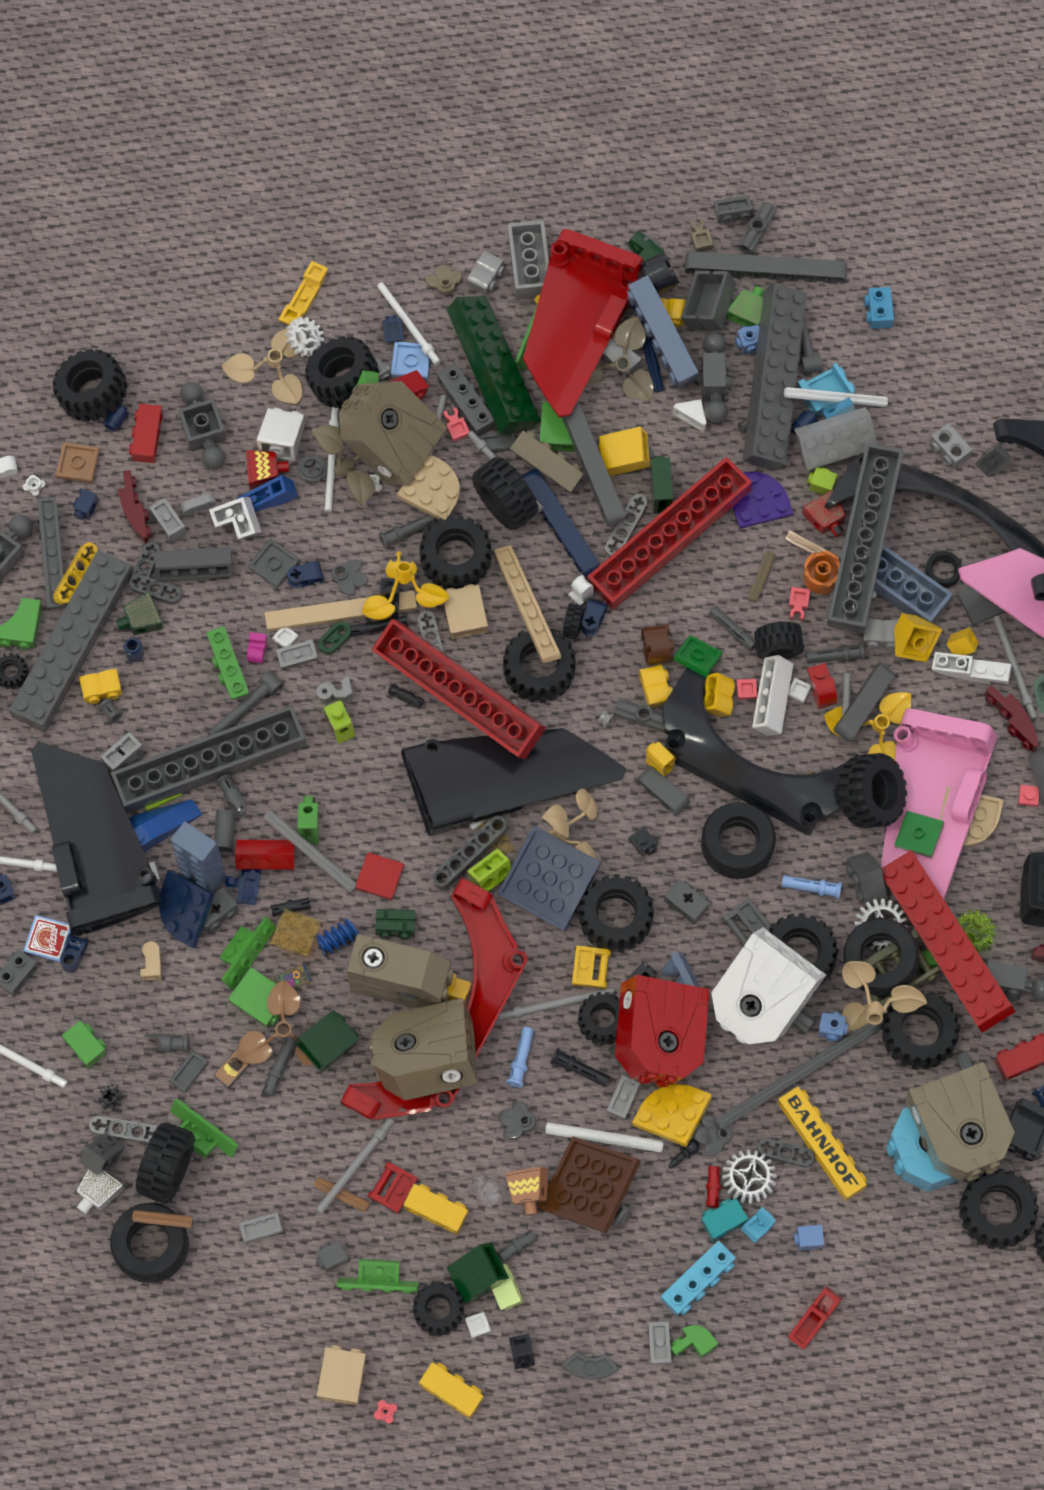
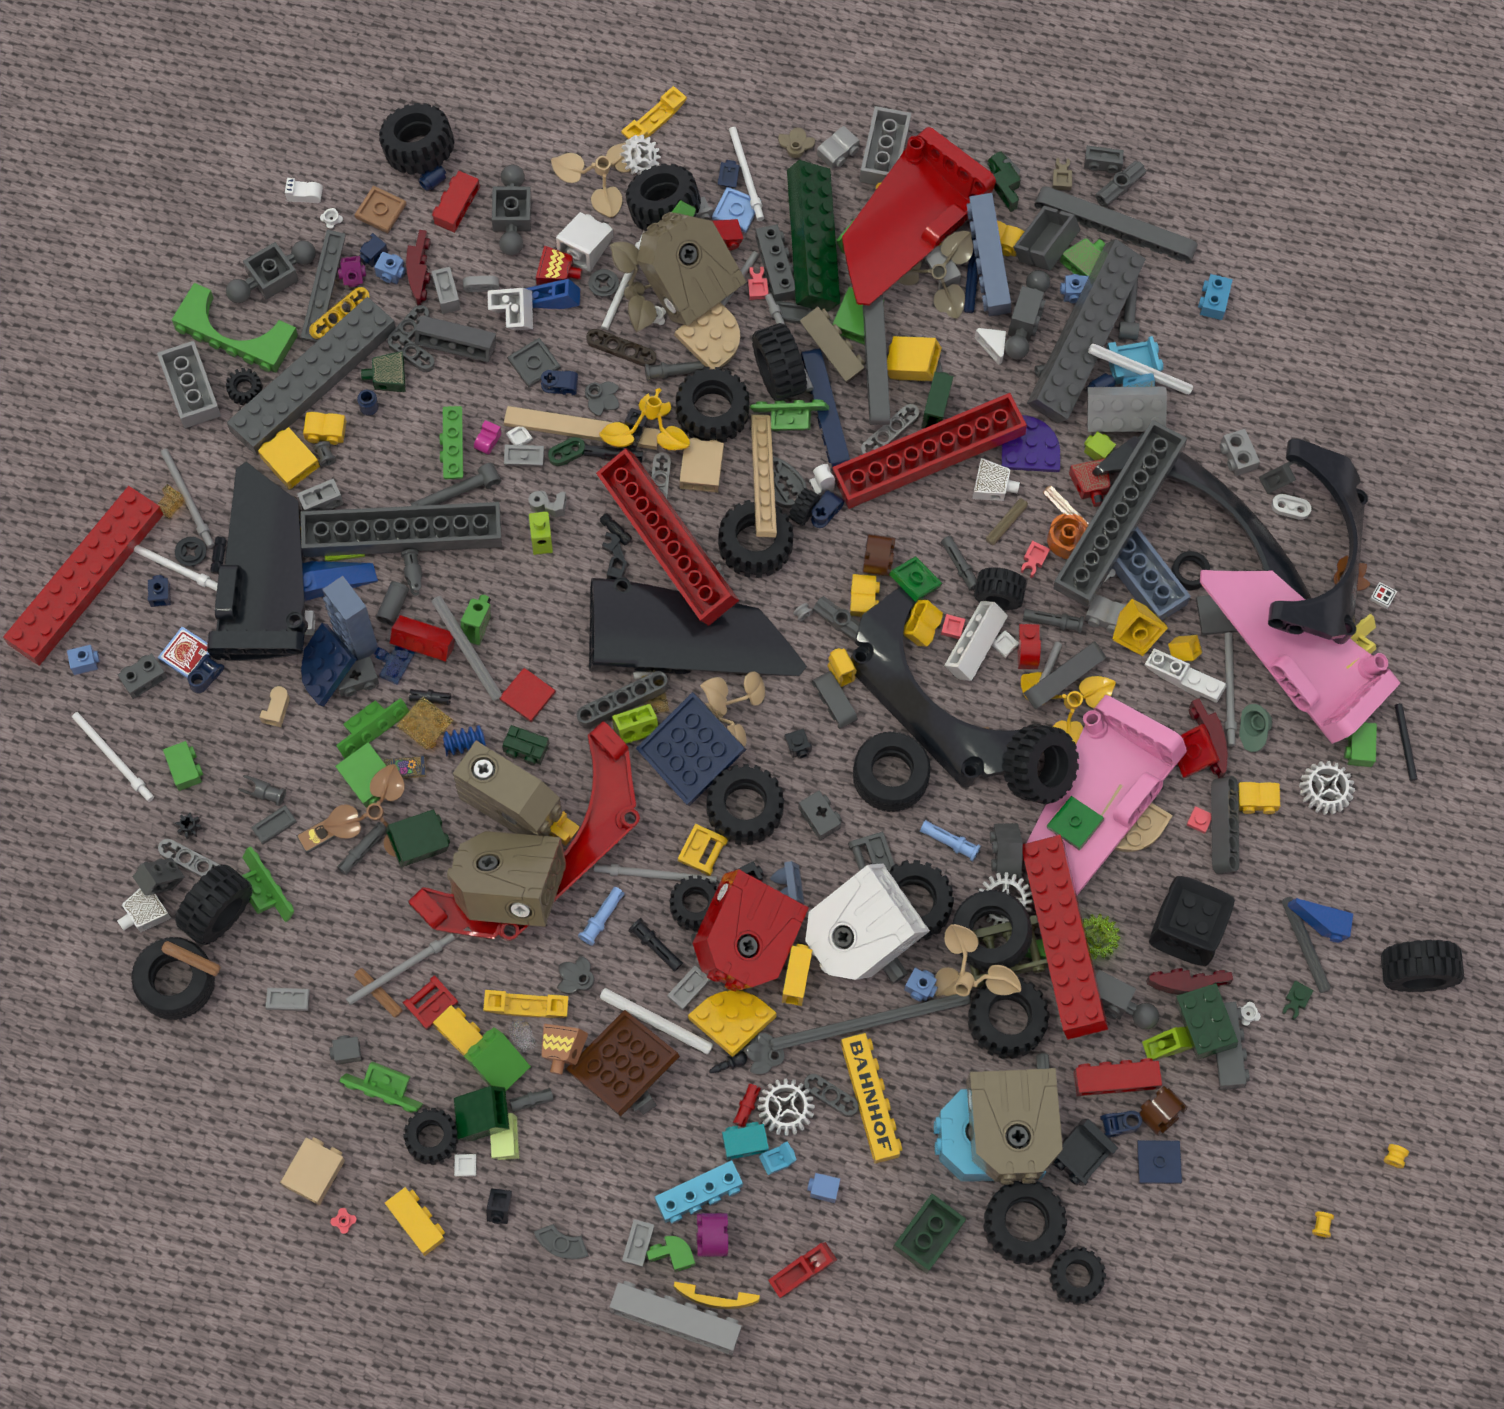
camera: 15 degrees right, 0 degrees up
(15, 834) = (192, 543): none -> black gear
(44, 837) = (218, 554): none -> black axle
(73, 530) = (352, 271): none -> magenta brick
(77, 725) = (288, 458): none -> yellow brick
(108, 515) = (390, 268): none -> medium blue brick
(350, 528) = (619, 351): none -> dark brown beam
(413, 715) = (615, 548): none -> black piece
(474, 1219) = (496, 1060): none -> bright green brick
(481, 1161) = (525, 1005): none -> yellow slope
(529, 540) = (790, 415): none -> bright green bracket
(554, 599) = (794, 480): none -> dark grey piece
(659, 274) = (1007, 197): black brick -> none
(718, 1054) = (797, 975): none -> yellow brick
(718, 1398) = (675, 1318): none -> light grey brick
(720, 1370) = (742, 1301): none -> yellow slope
(725, 1313) = (712, 1235): none -> magenta brick
(737, 543) = (993, 482): none -> white torso
(917, 1247) = (929, 1233): none -> dark green brick
(1009, 734) = (1199, 752): none -> red tile
(1012, 480) = (1291, 505): none -> white plate

